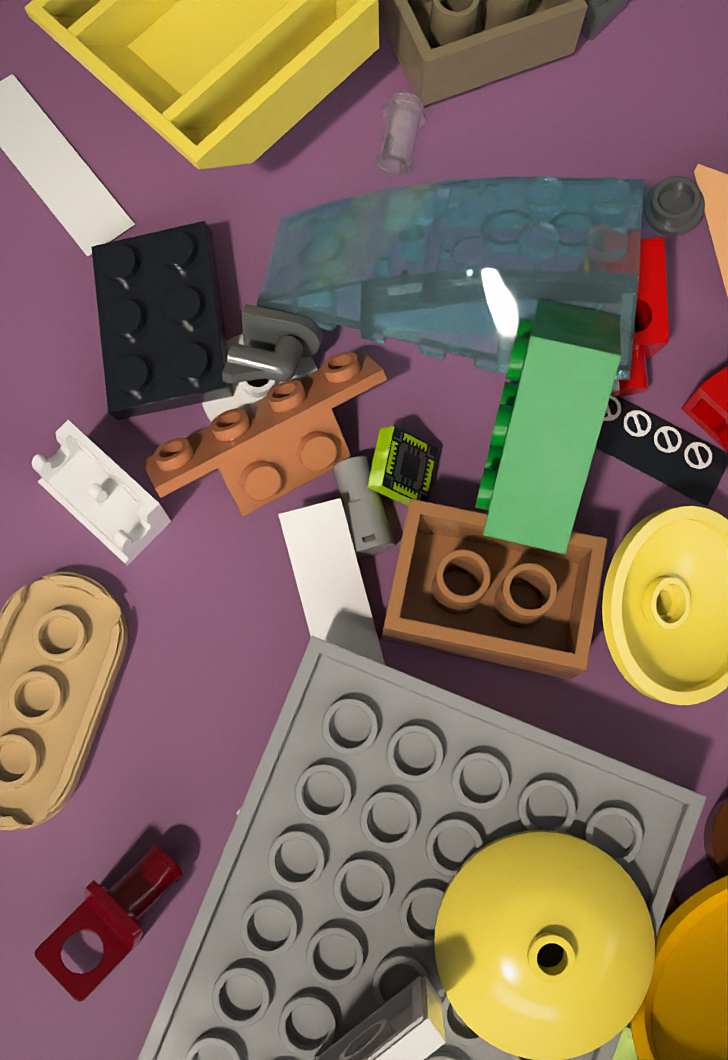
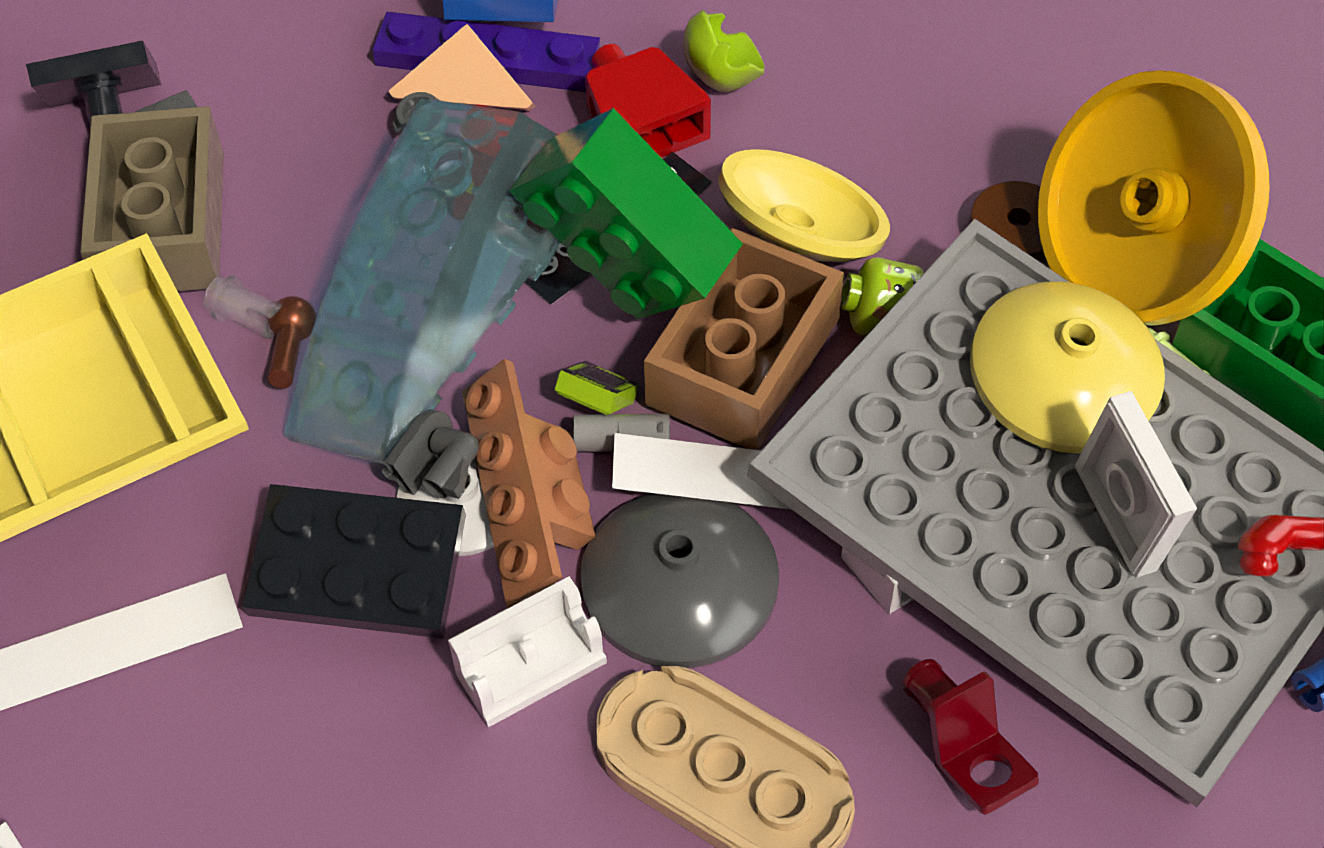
camera: 70 degrees left, 20 degrees down
(231, 648) = (684, 607): none -> dark grey dish
(396, 176) = (290, 326): none -> copper bar
(600, 717) = (876, 291): none -> lime head

